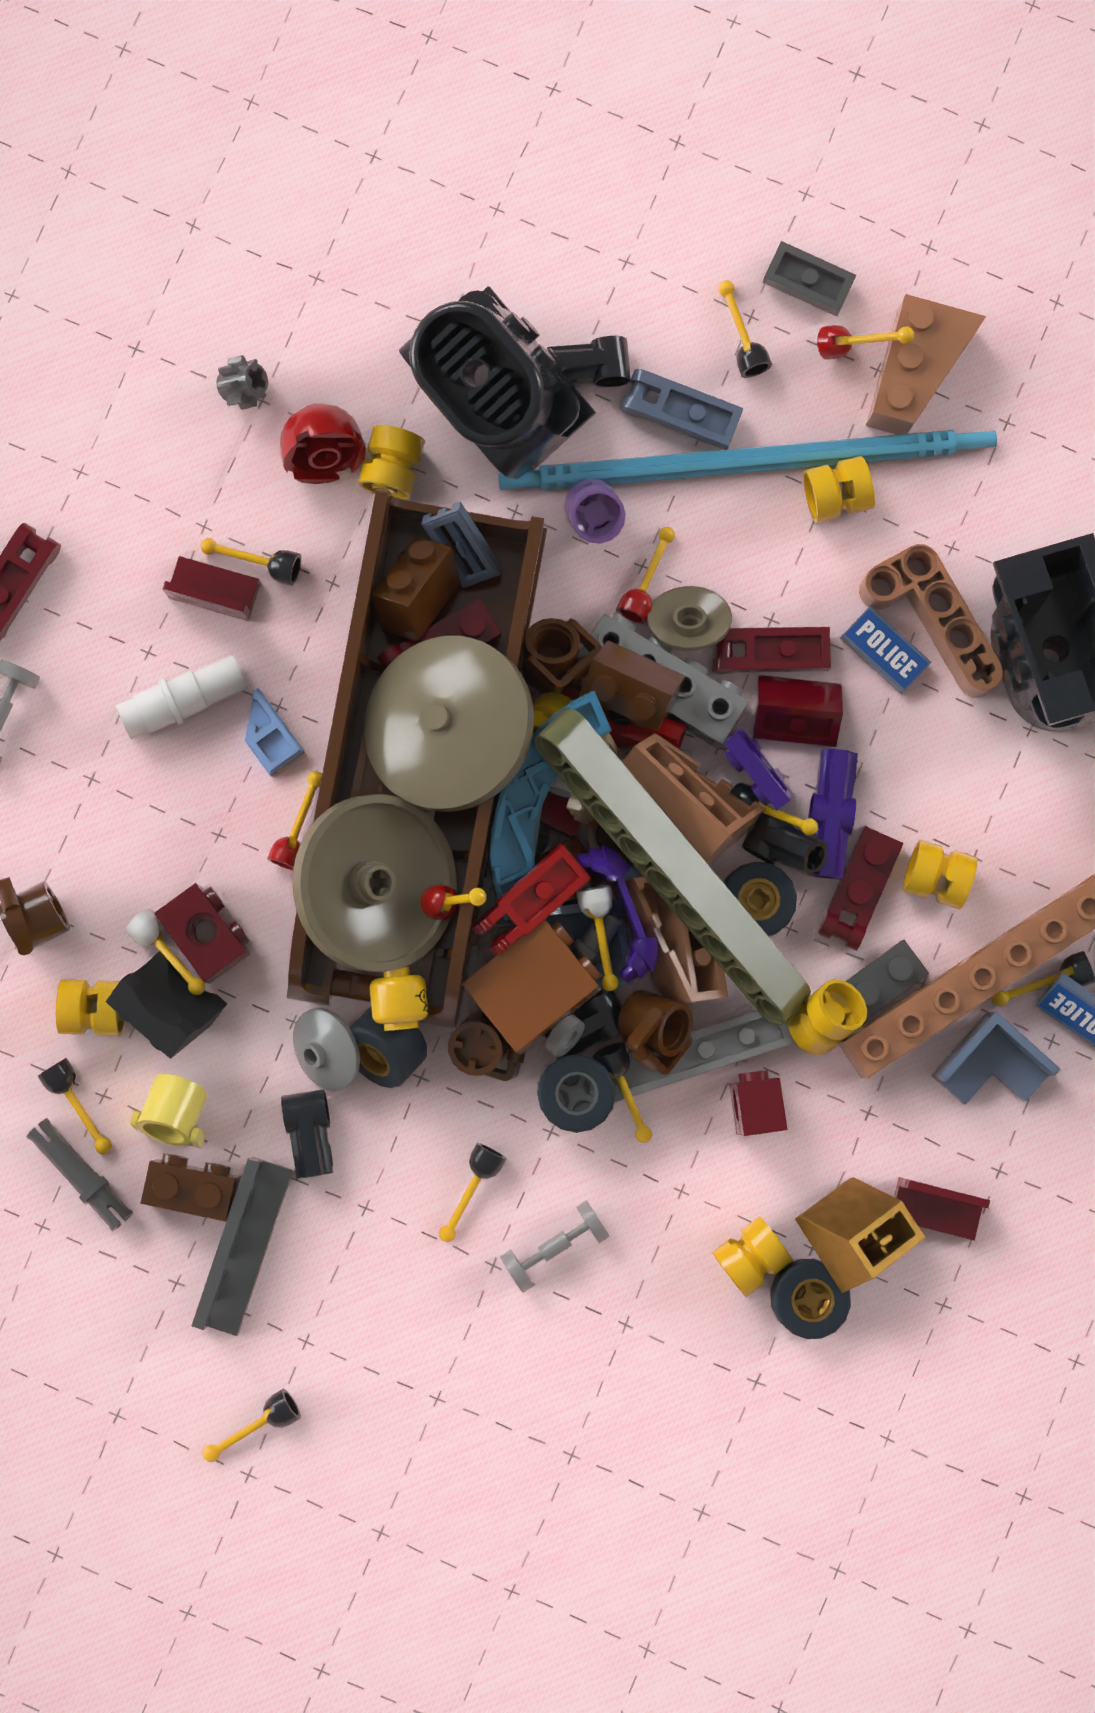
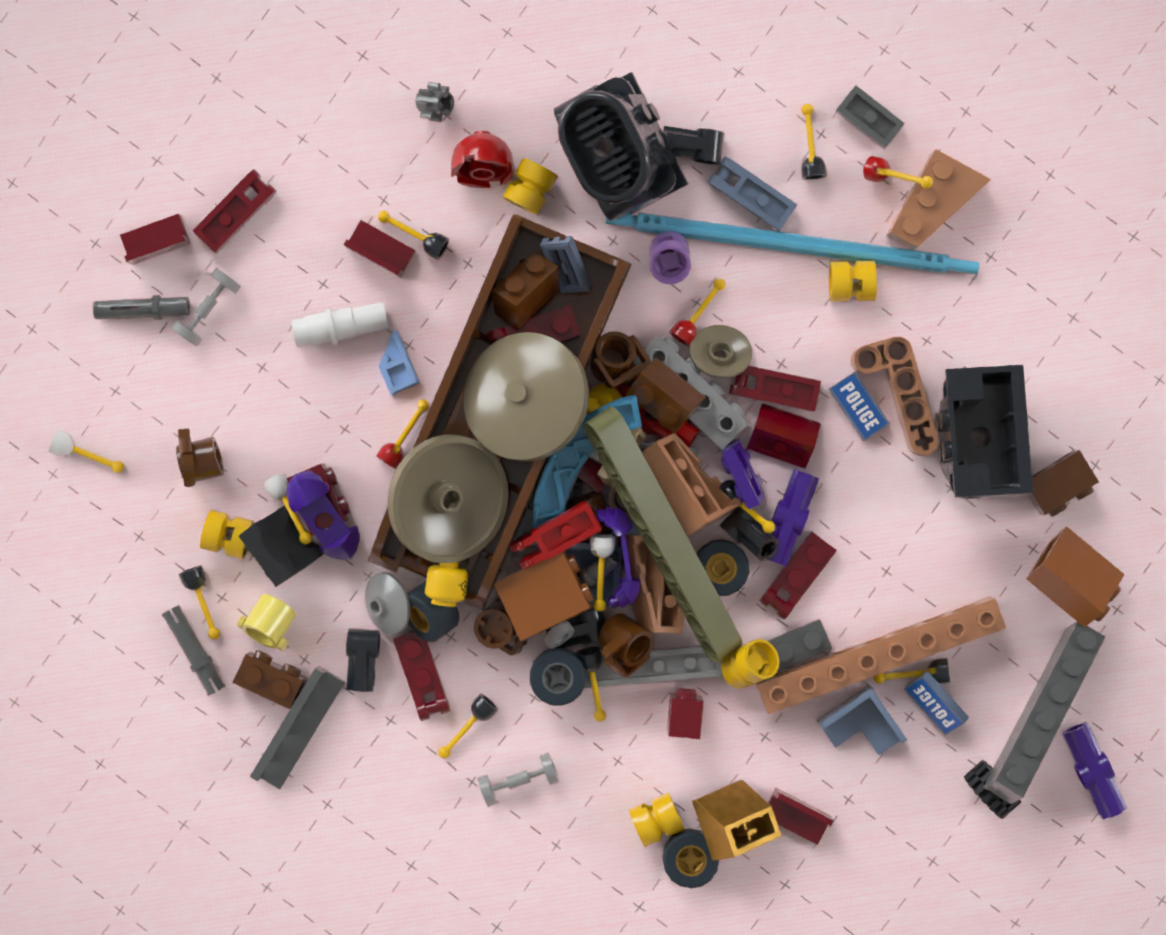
camera: 20 degrees right, 5 degrees up
(188, 928) = (308, 496): none -> dark purple piece
(278, 1411) = (297, 849): hinge -> none
(392, 1136) = (421, 674): none -> dark red plate
(446, 898) = (494, 519): red hinge -> none
(940, 874) = (856, 579): yellow wheel -> none

